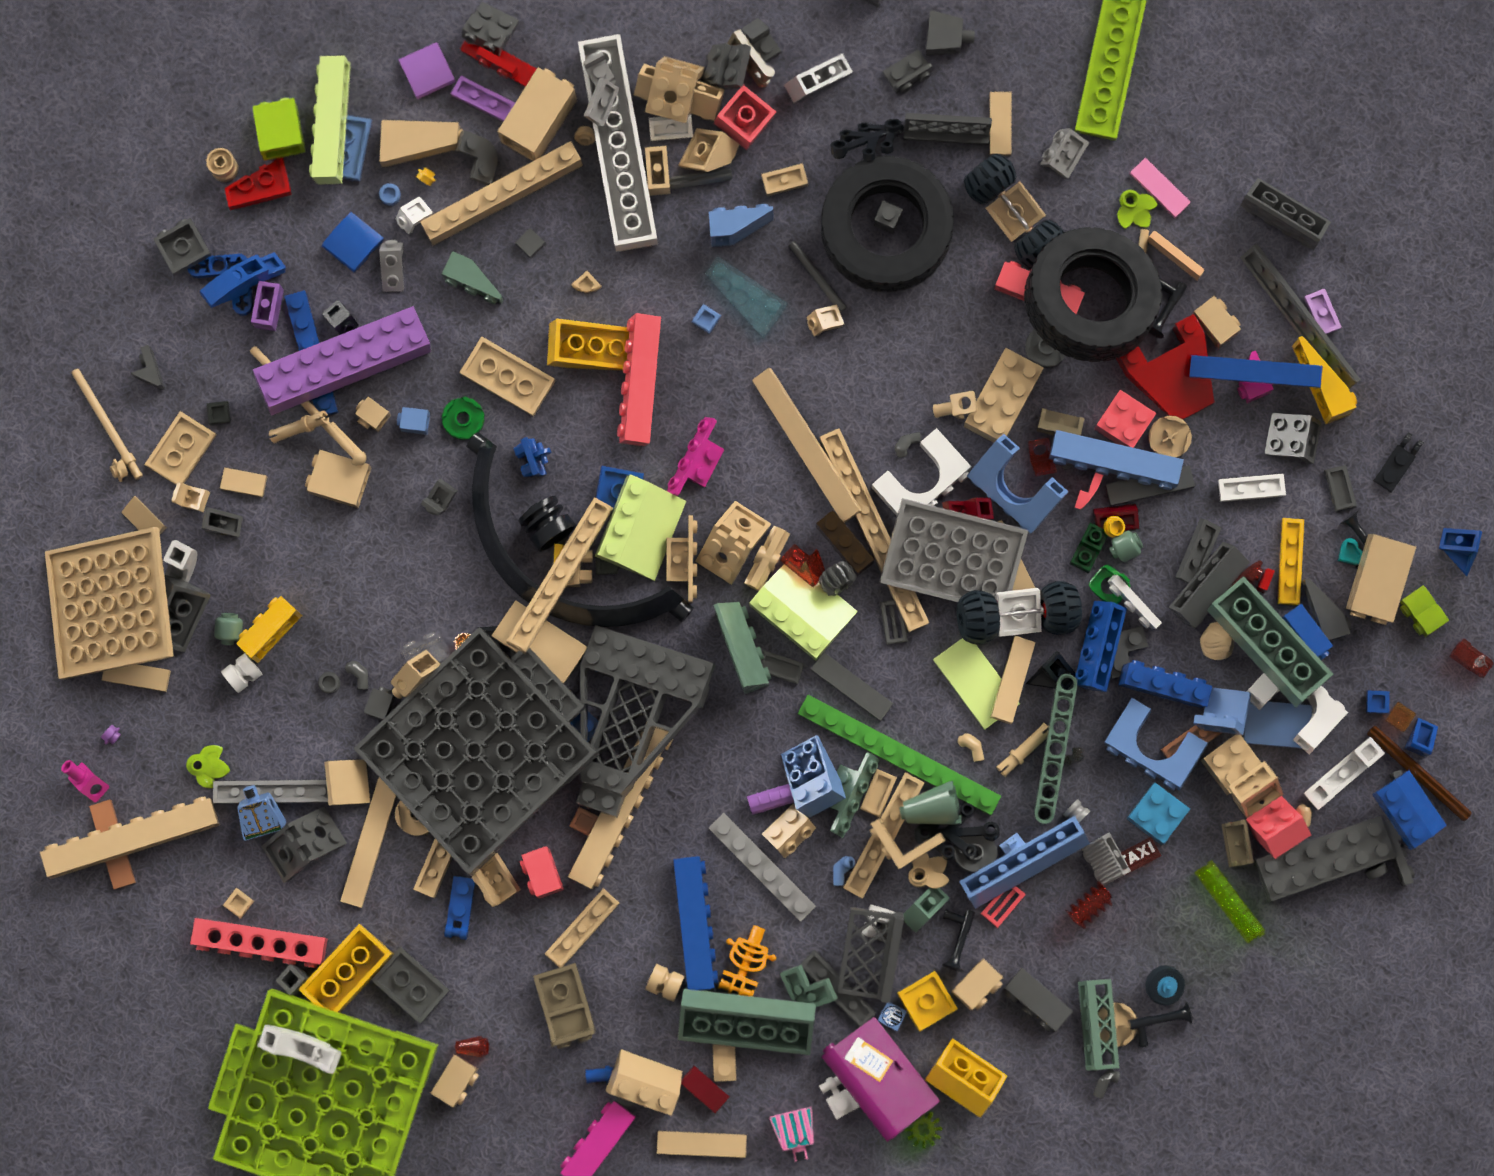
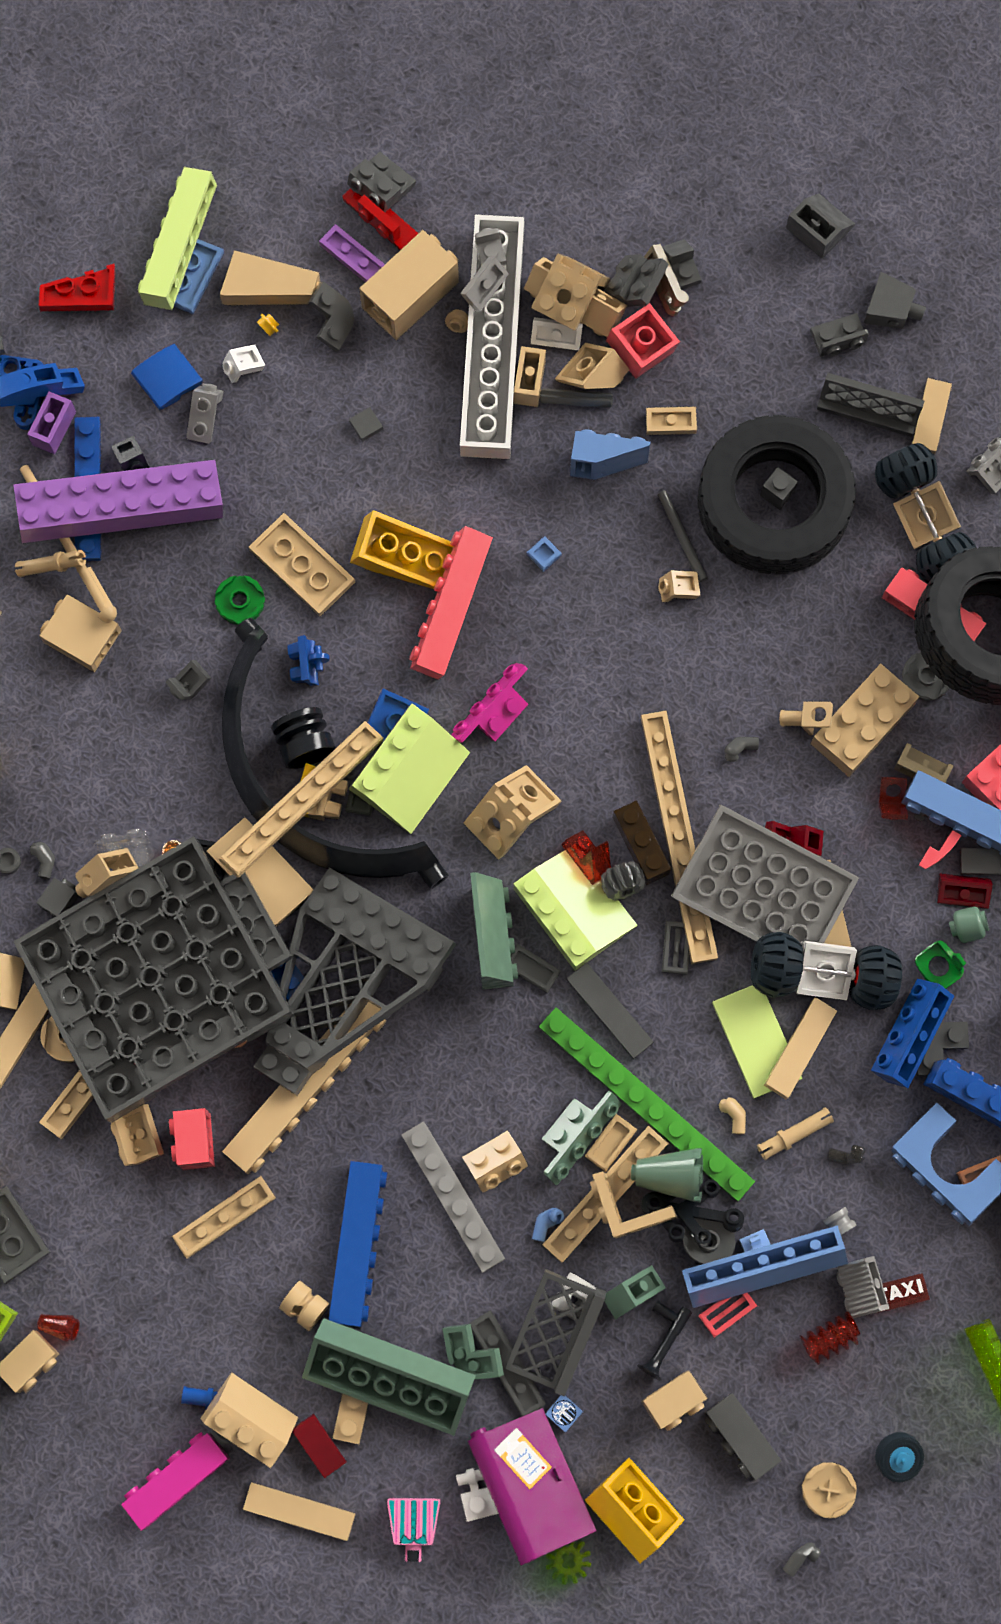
camera: 10 degrees right, 5 degrees down
(222, 165) = (44, 259): tan wheel -> none
(278, 128) = (117, 235): lime brick -> none
(371, 414) = (137, 570): tan brick -> none
(389, 194) = (222, 335): medium blue tile -> none
(413, 420) = (182, 588): medium blue brick -> none
(427, 70) = (299, 211): medium lavender slope -> none
(460, 907) = (88, 1157): blue plate -> none
(466, 273) = (284, 440): sand green slope -> none
(501, 193) = (347, 361): tan brick -> none
(565, 1005) = (179, 1304): dark tan bracket -> none
(583, 821) = (257, 1091): nougat tile -> none
(586, 283) = (418, 483): tan tile -> none
(680, 559) = (446, 816): tan bracket -> none
(751, 299) = (599, 542): clear light blue wing -> none
(754, 942) = (421, 1284): light orange torso -> none
(767, 558) = (547, 838): tan piece -> none
(770, 799) = (482, 1119): medium lavender axle -> none
(806, 445) = (624, 721): tan tile -> none
(812, 777) = (537, 1105): medium blue slope -> none
(817, 78) = (734, 318): light grey slope -> none
(891, 129) = (805, 392): black plant -> none
(927, 1001) = (609, 1405): yellow plate -> none
(931, 869) = (652, 1250): tan plate -> none
(951, 469) = (785, 786): white arch -> none
(989, 476) = (827, 806): medium blue arch -> none
(1051, 671) = (850, 1052): black slope -> none
(1058, 760) = (823, 1150): sand green beam -> none
(1089, 548) = (925, 916): dark green slope -> none
(1090, 1024) = (799, 1482): sand green fence -> none
(1114, 526) = (960, 898): yellow plate -> none
(1133, 602) = (963, 991): white plate -> none
(1140, 1023) = (859, 1496): black piece -> none
(1158, 813) = (937, 1248): dark azure brick -> none

